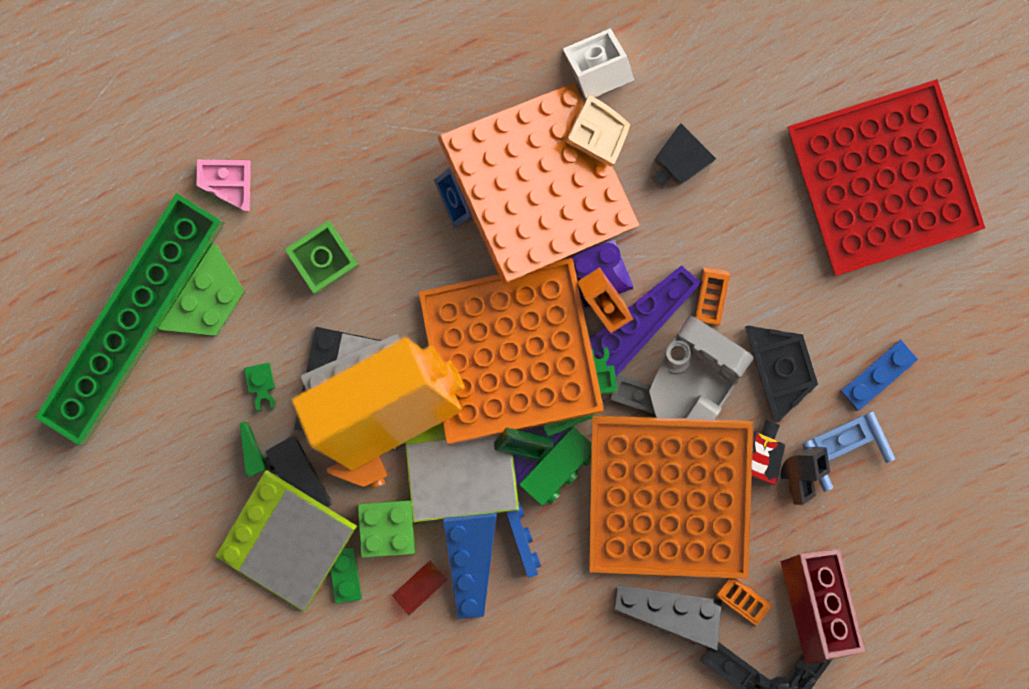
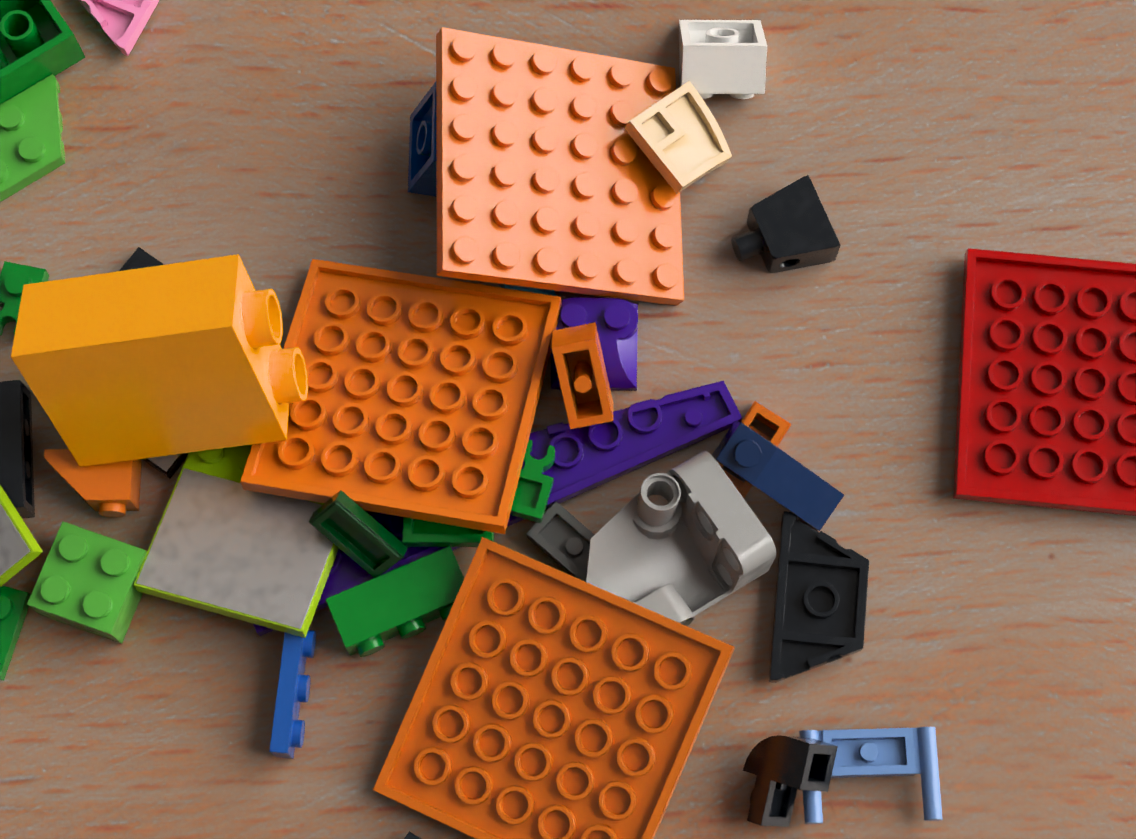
camera: 25 degrees right, 15 degrees down
(322, 257) = (194, 151): bright green brick -> none
(419, 587) = (98, 701): clear red slope -> none
(470, 553) = (195, 673): blue wing -> none
(732, 308) = (777, 475): none -> dark blue slope
(767, 453) = (734, 720): torso -> none
(879, 375) = (966, 678): blue plate -> none

